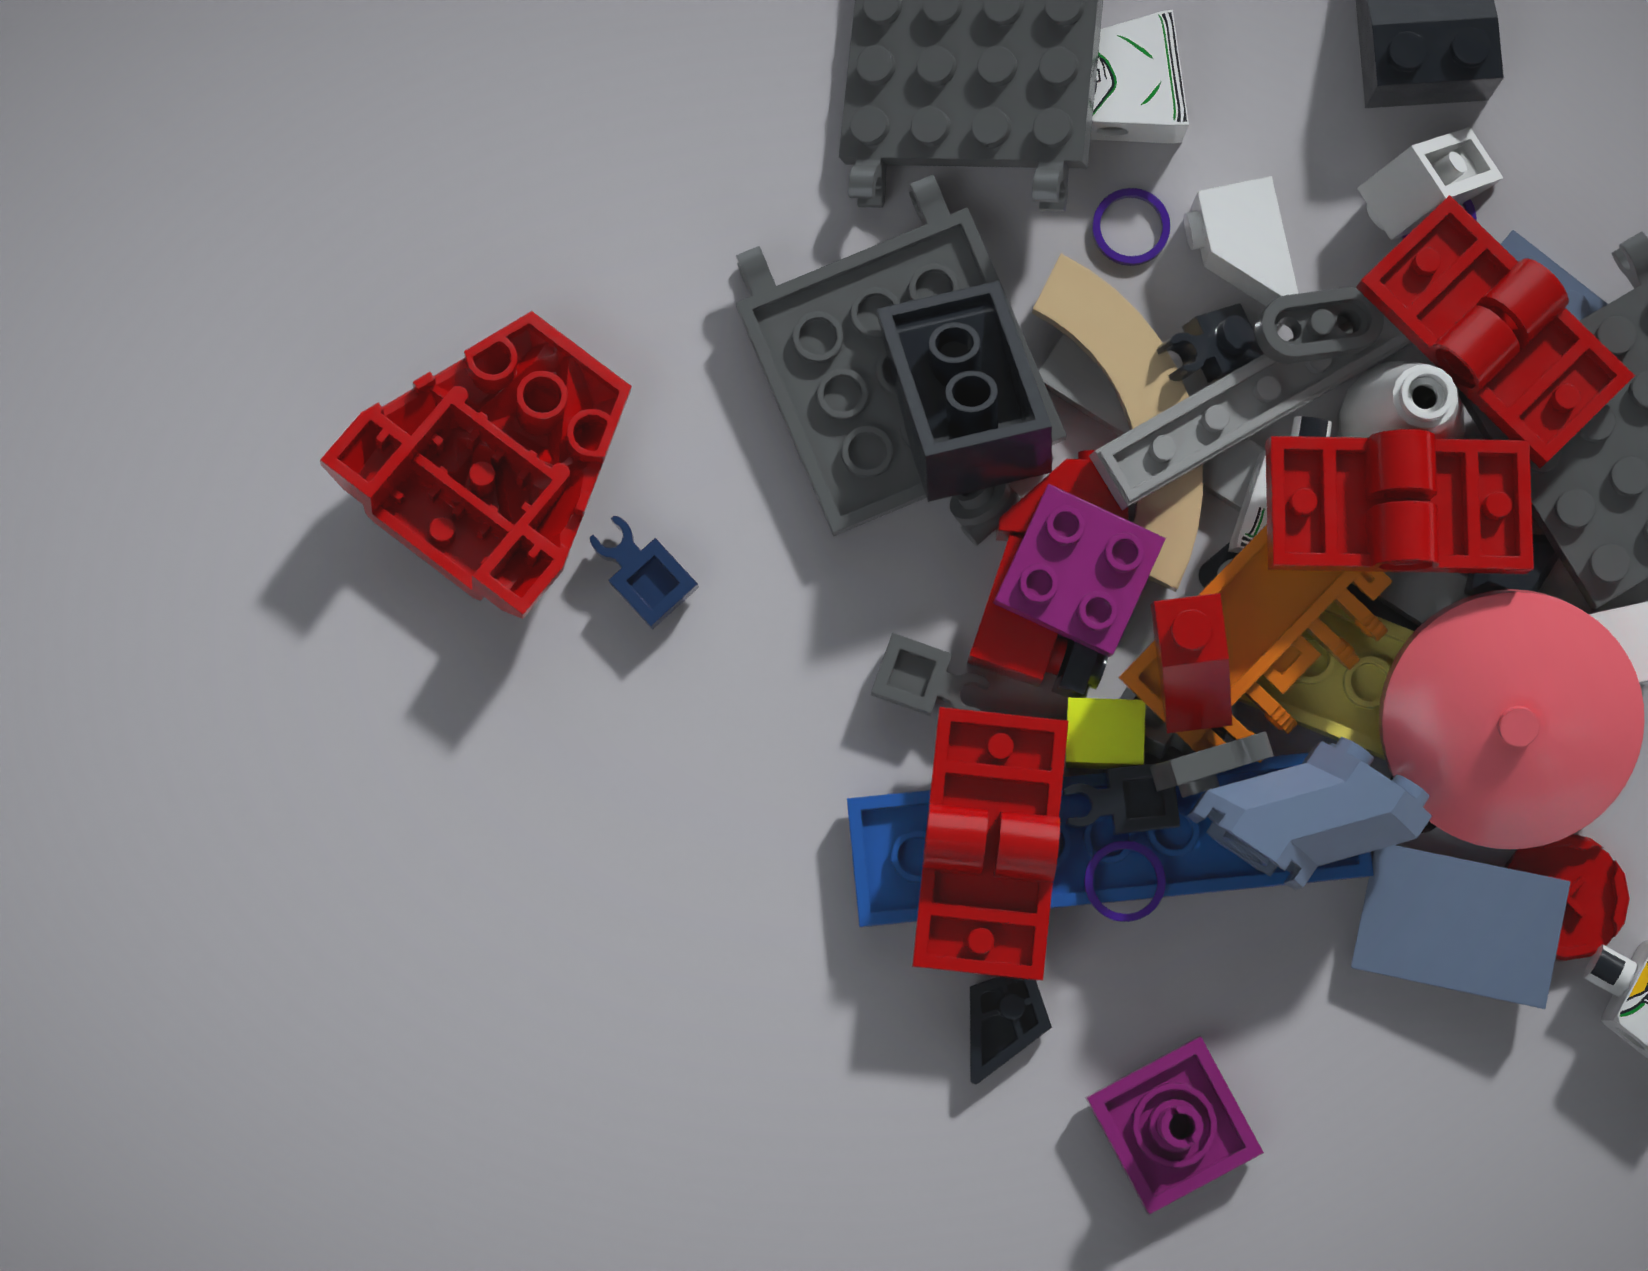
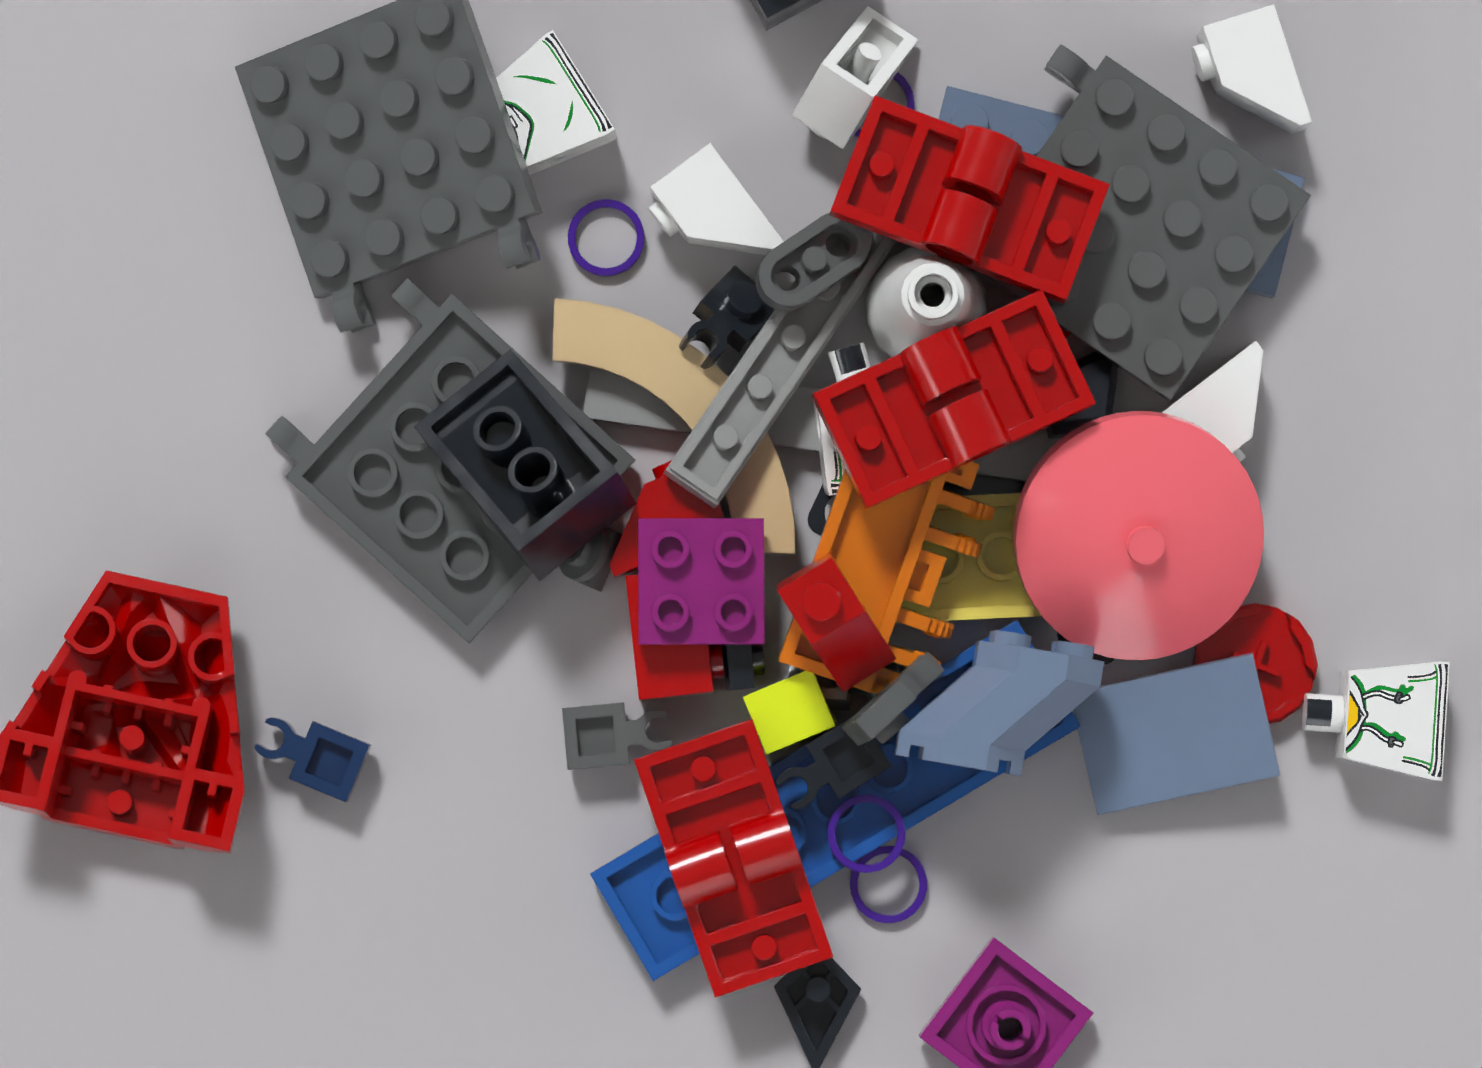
camera: 30 degrees left, 5 degrees up
(1121, 978) = (902, 915): none -> dark purple piece

